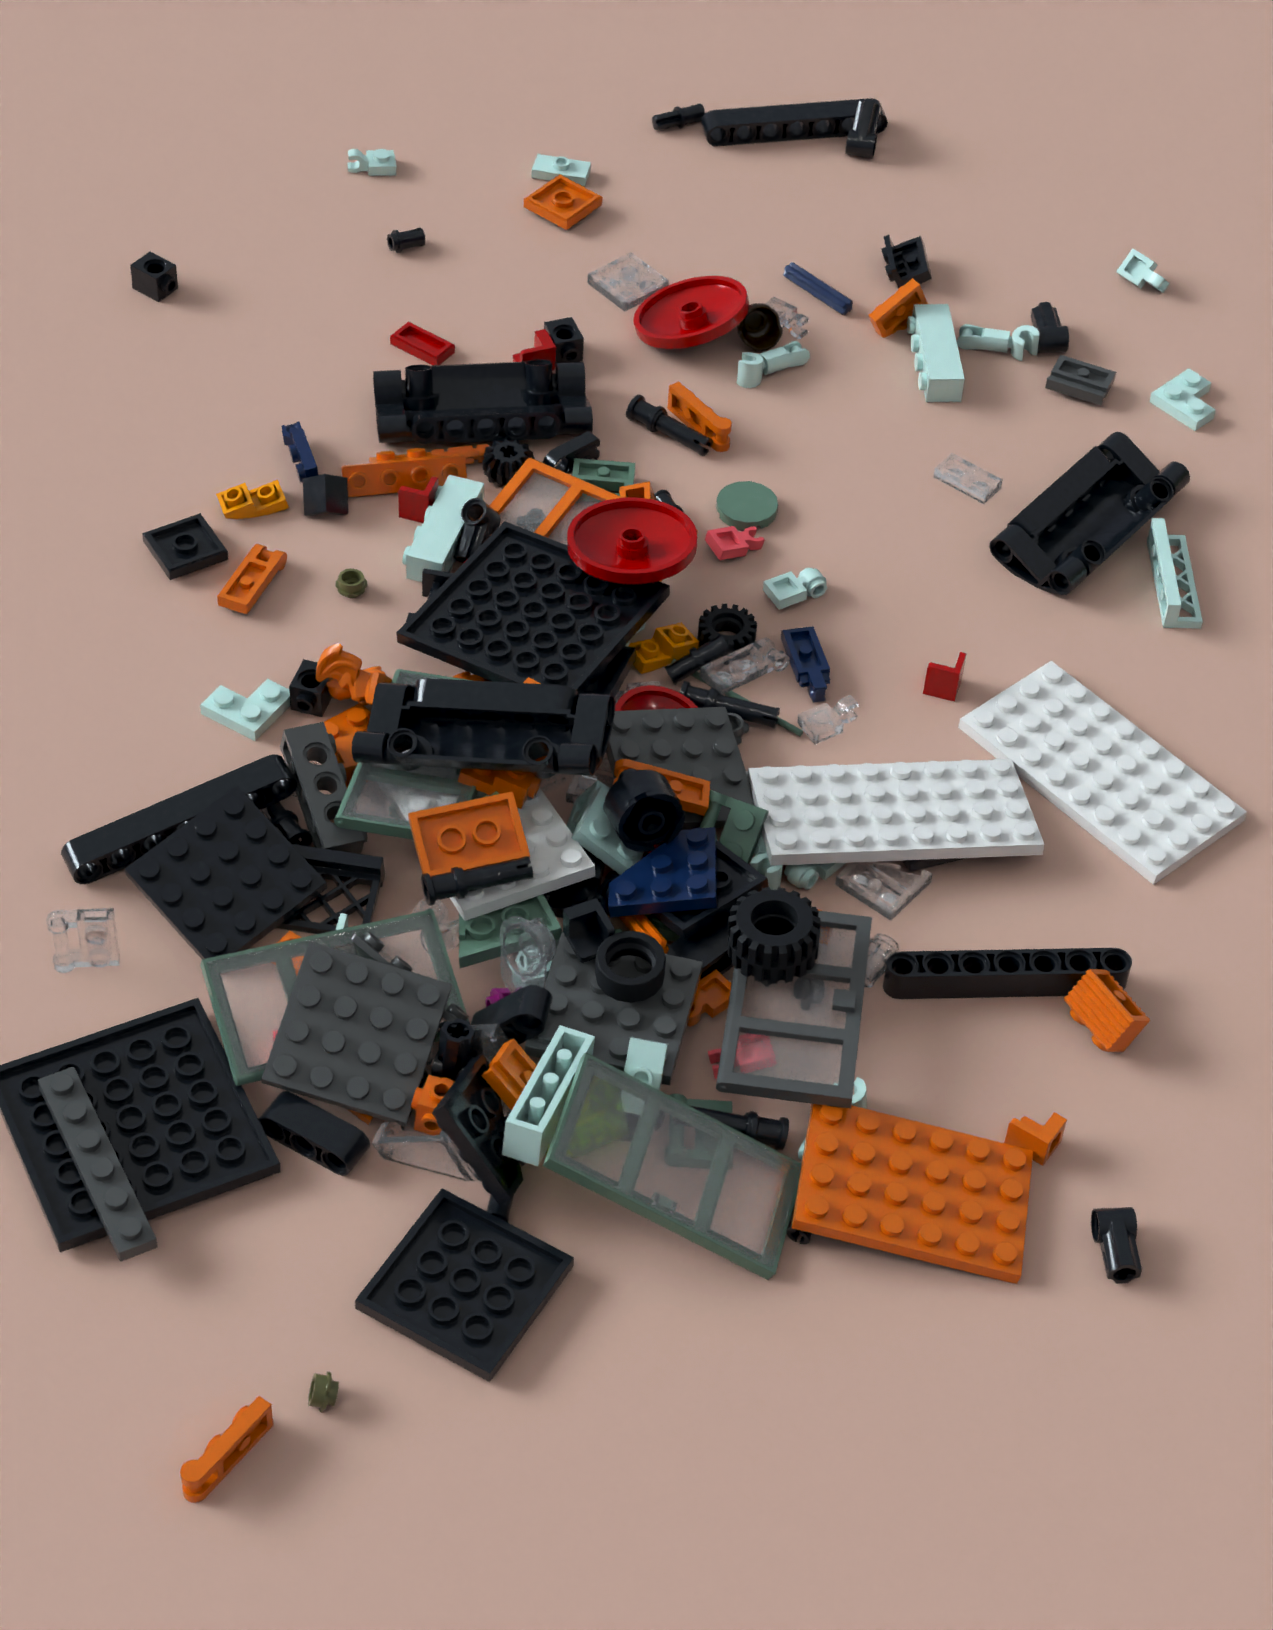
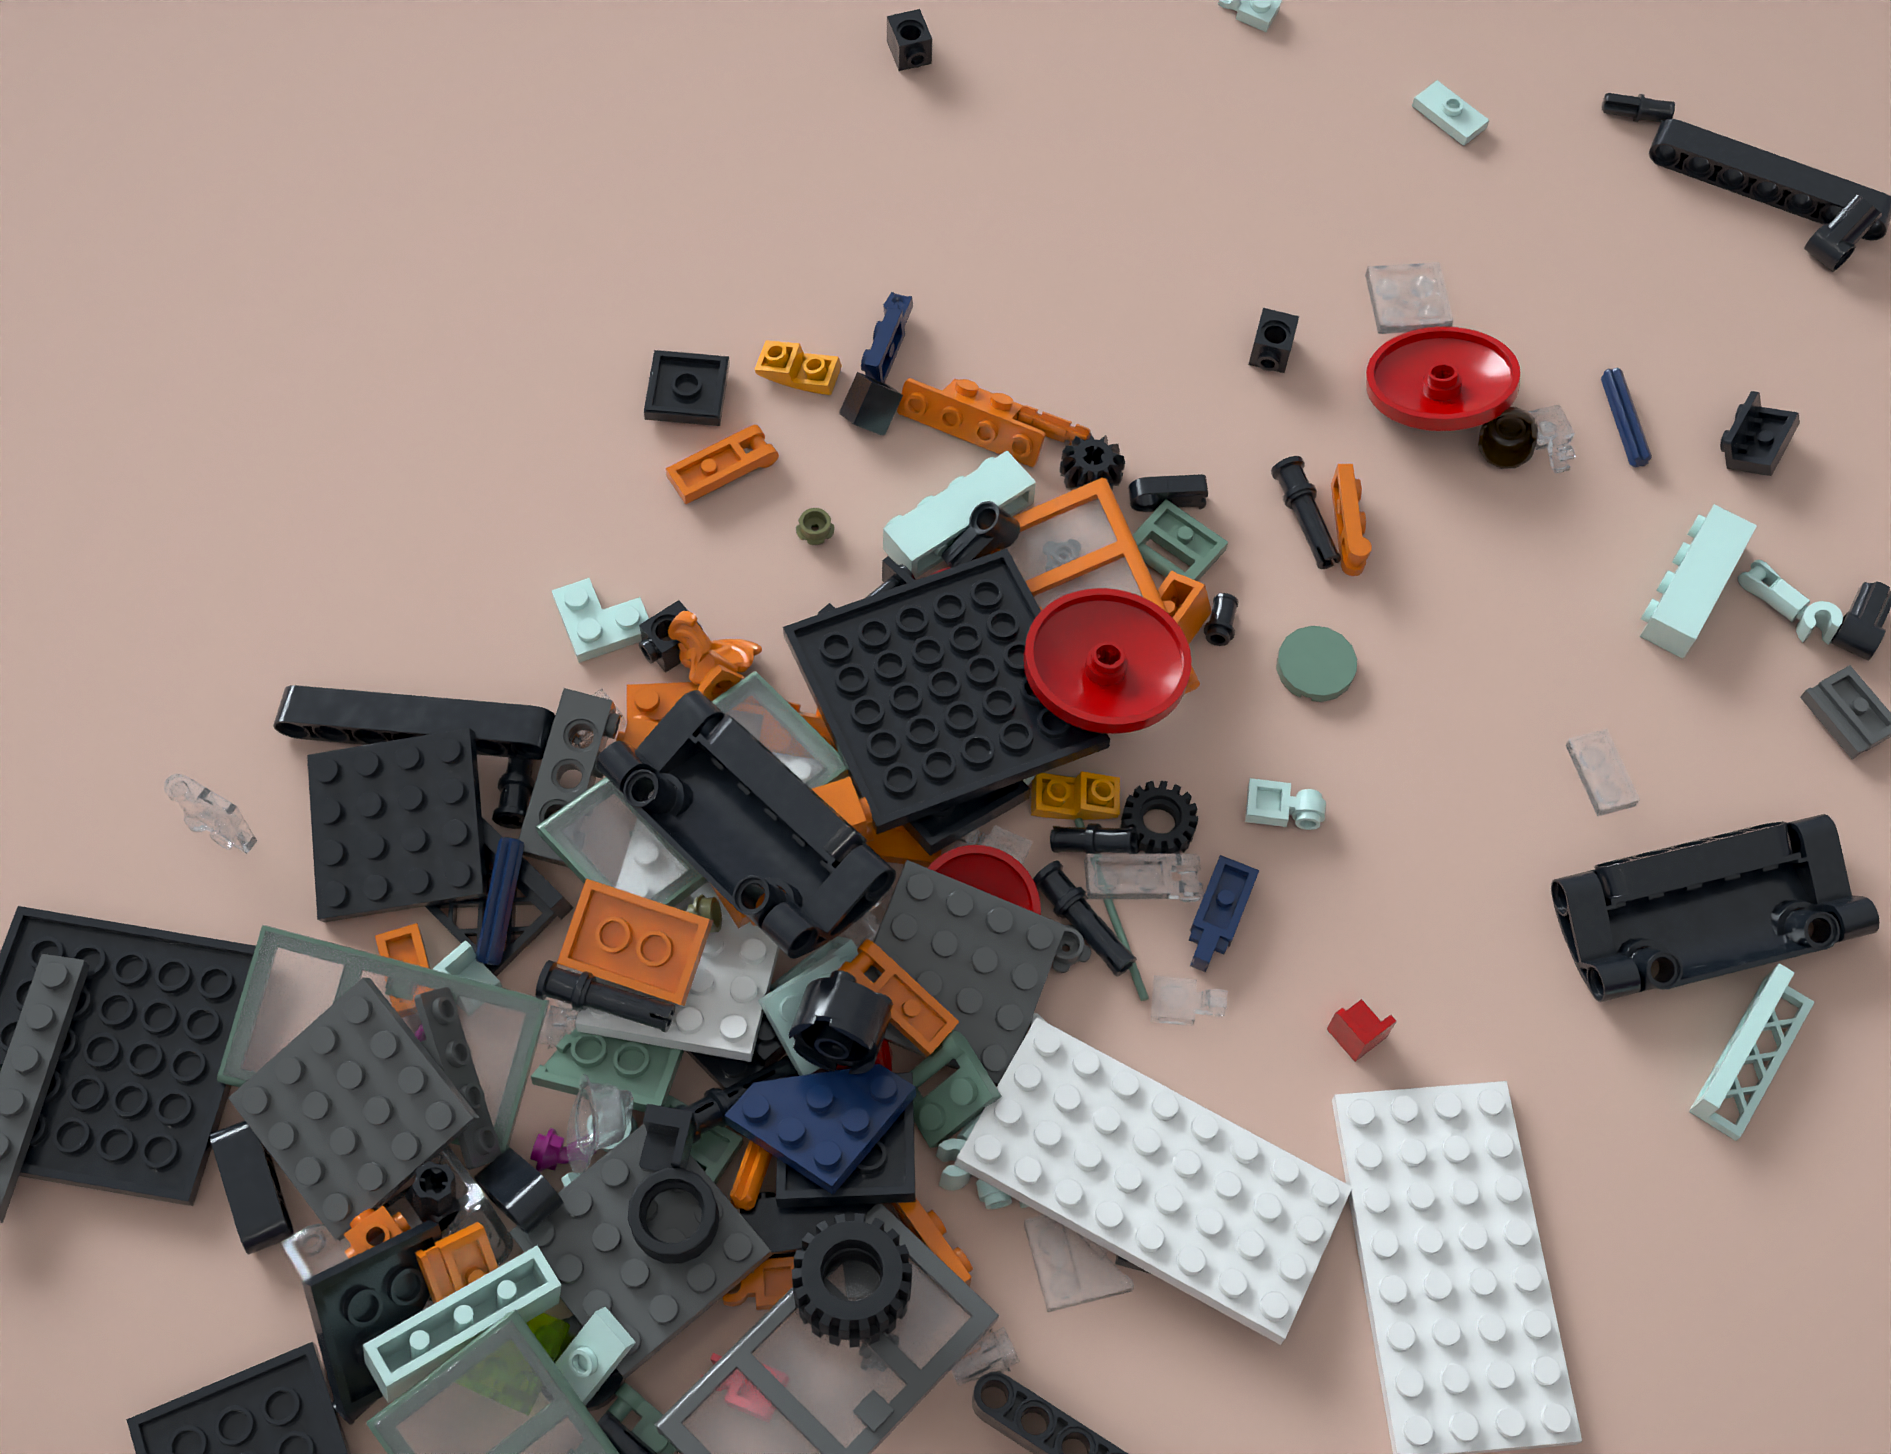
camera: 35 degrees right, 15 degrees up
(340, 880) = (499, 901): none -> dark blue axle
(406, 239) = (1207, 121): black pin -> none
(415, 502) = (958, 460): red panel -> none
(422, 344) = (1125, 263): red tile -> none
(481, 402) = (1123, 375): black panel -> none
(543, 349) = (1231, 346): red panel -> none
(563, 202) = (1417, 156): orange plate -> none
(730, 543) = (1255, 705): coral plate -> none
(768, 362) = (1458, 489): light aqua piece -> none
(893, 313) = (1687, 500): orange wing -> none

